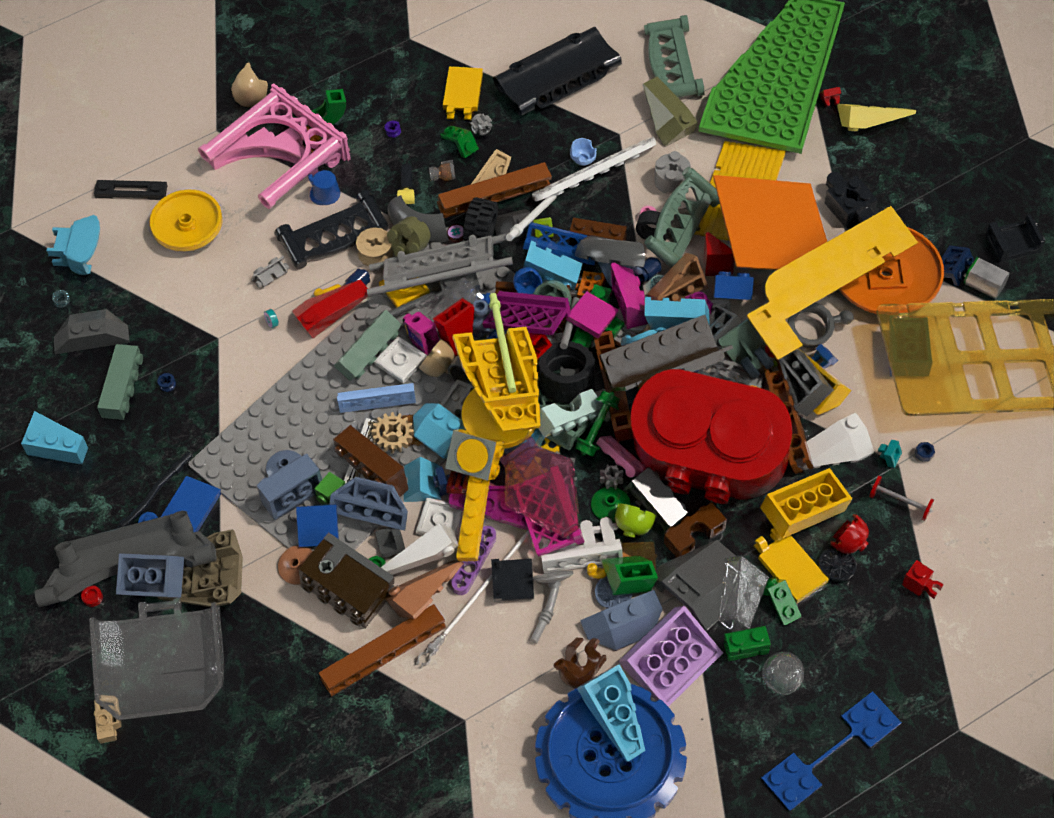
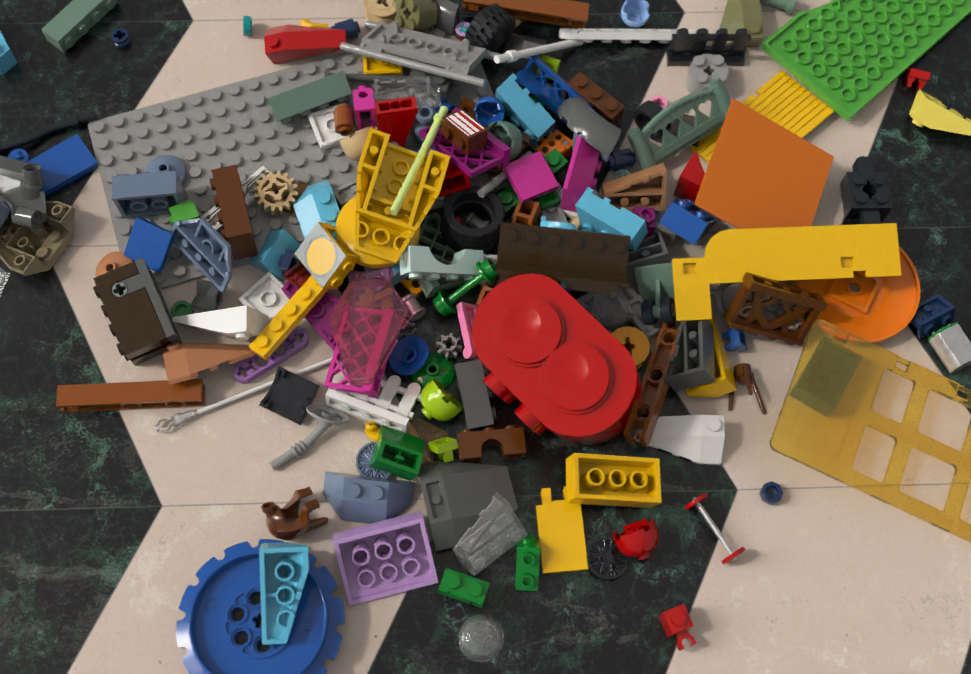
camera: 25 degrees right, 10 degrees up
(376, 398) = (286, 150): light blue fence -> none
(410, 348) = (344, 120): none -> dark orange brick
(522, 304) = (464, 131): none -> reddish brown brick
(589, 491) = (406, 349): none -> blue dish
(645, 165) = (682, 54): none -> black fence
(661, 552) = (443, 448): none -> lime tile
(823, 303) = (776, 327): none -> reddish brown fence
(849, 379) = (745, 376): none -> reddish brown plant
(890, 452) = (735, 475): teal tile -> none

